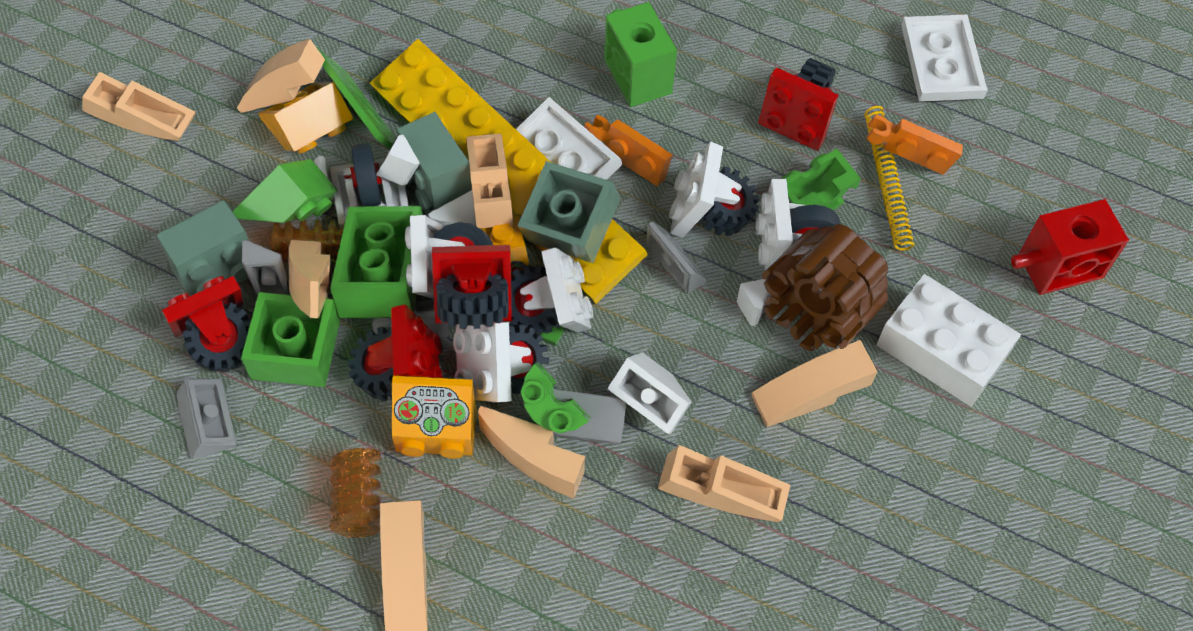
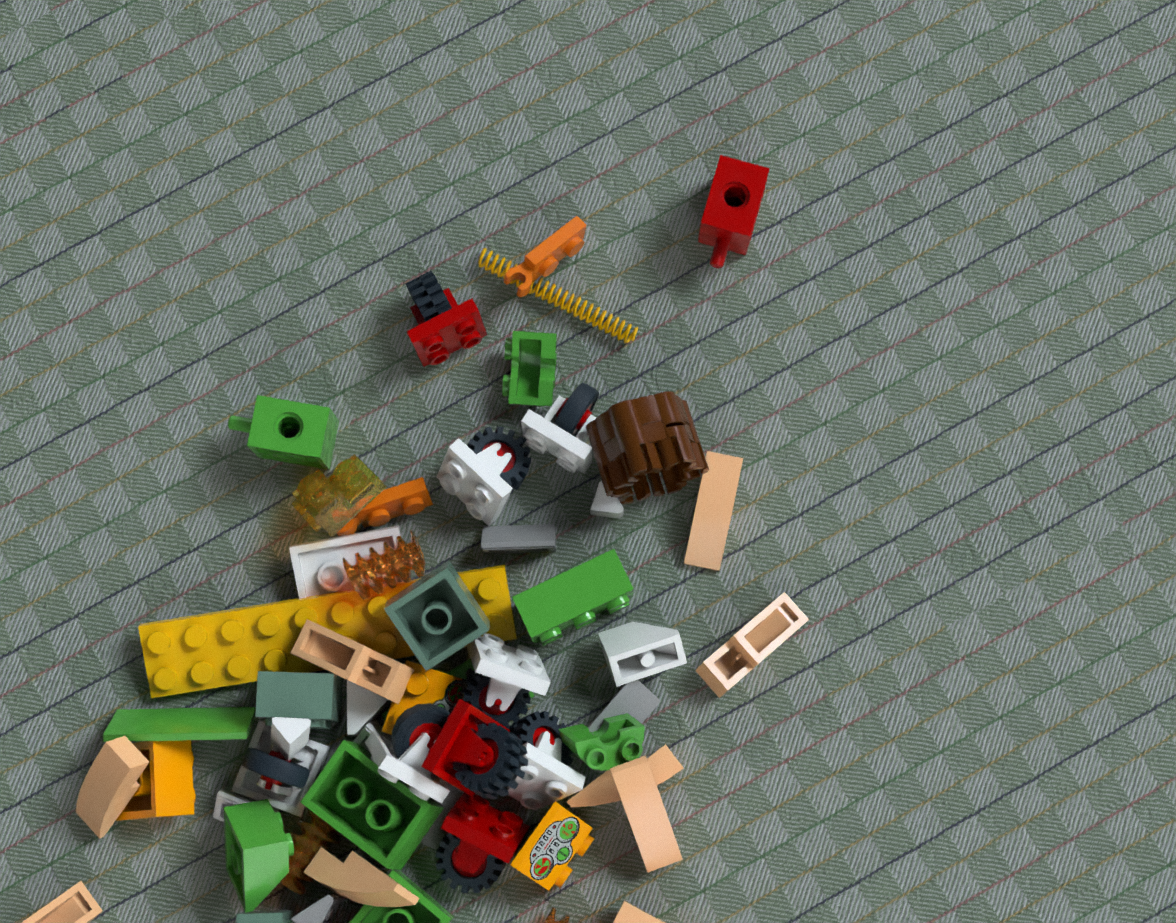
camera: 50 degrees left, 20 degrees up
(511, 473) = (646, 813): none -> light nougat slope
(569, 152) = (386, 566): none -> clear orange piece
(606, 101) = (338, 498): none -> clear yellow plate
(658, 311) = (574, 598): none -> bright green brick
(943, 58) = (466, 150): white plate -> none
(947, 339) = (744, 371): white brick -> none

